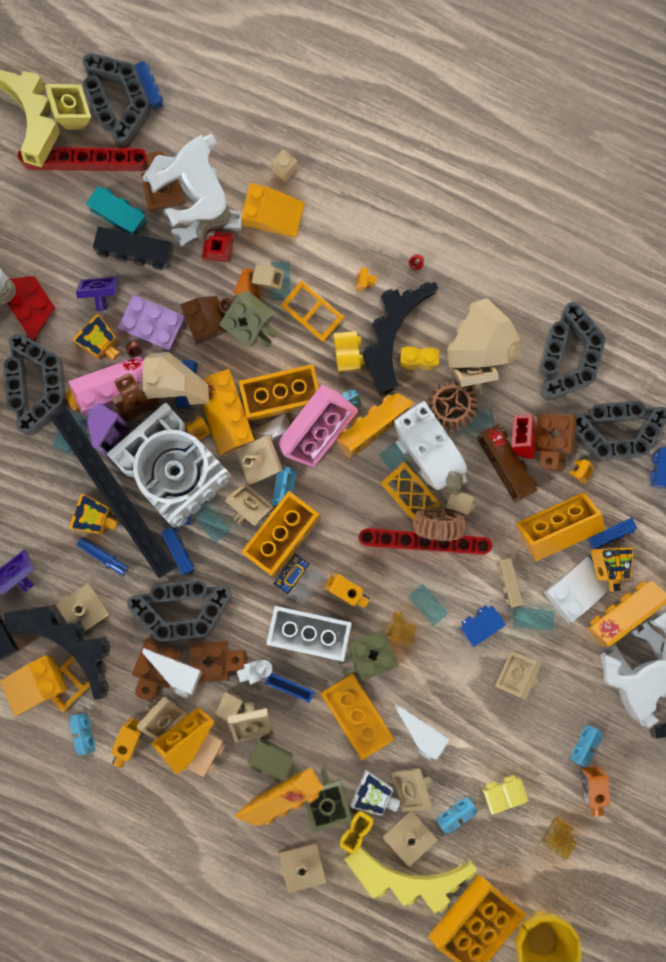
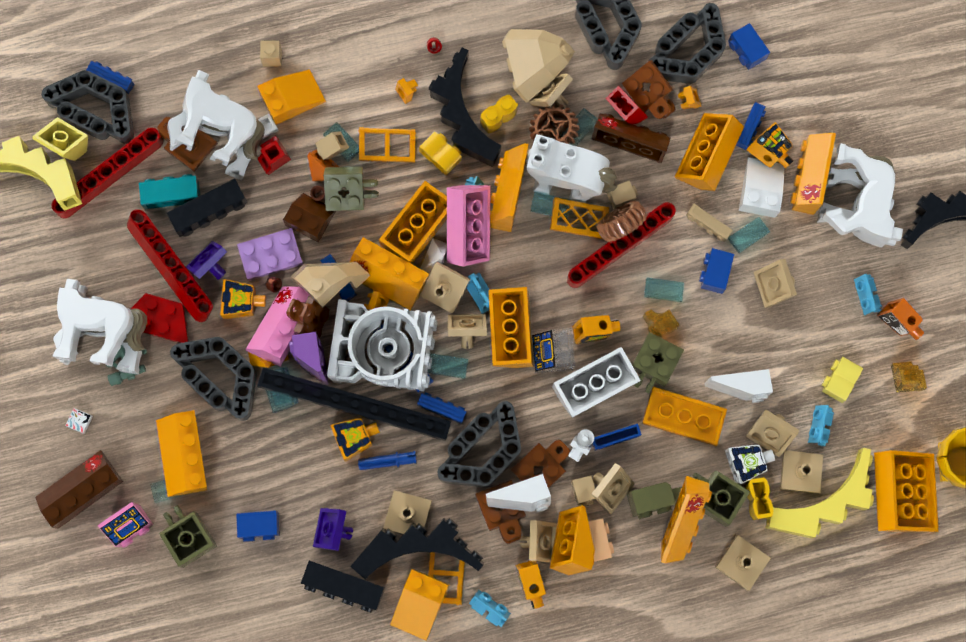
camera: 40 degrees left, 5 degrees down
(72, 261) = (170, 274): none -> red beam

